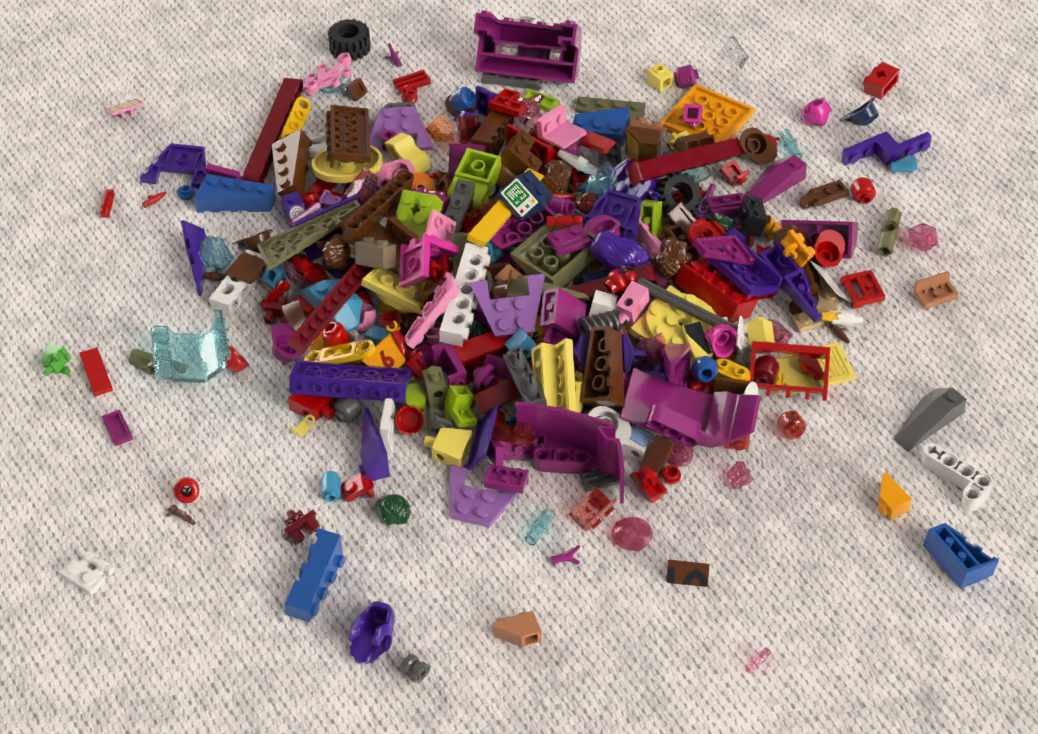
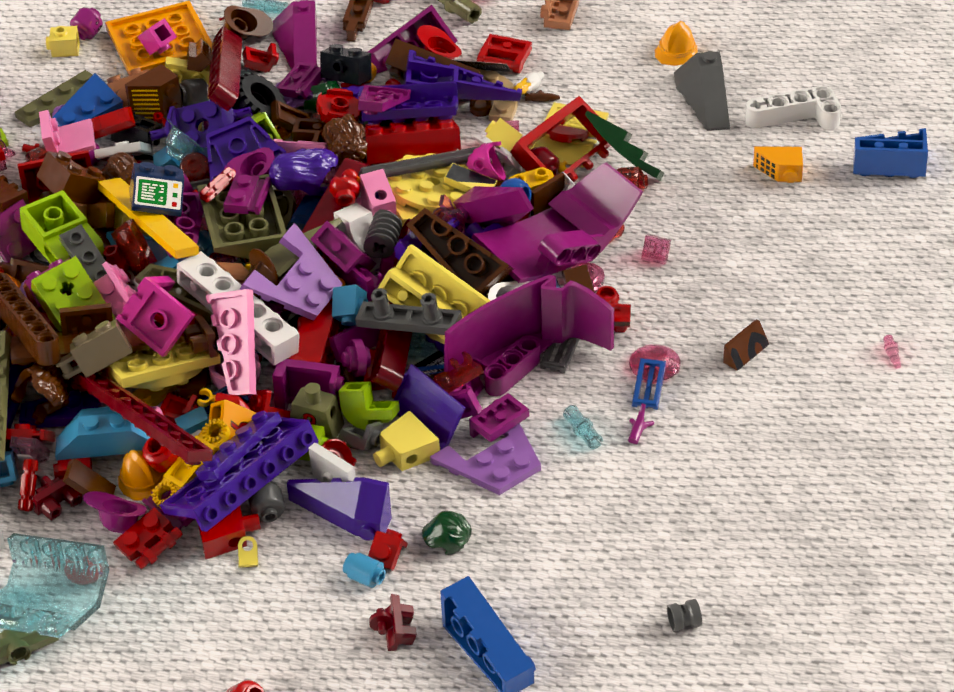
camera: 55 degrees left, 5 degrees down
(276, 373) = (144, 534): none -> red plate
(363, 366) = (239, 445): none -> dark purple plate
(372, 632) = (610, 625): dark purple hair -> none
(519, 629) = (708, 505): nougat slope -> none
(589, 511) = (602, 374): clear red bracket -> none
(607, 543) = (649, 403): none -> blue tile
(796, 248) = (435, 50): light orange hips -> none
(815, 395) = (619, 139): none -> dark green slope
(963, 375) = (676, 45): none -> light orange piece

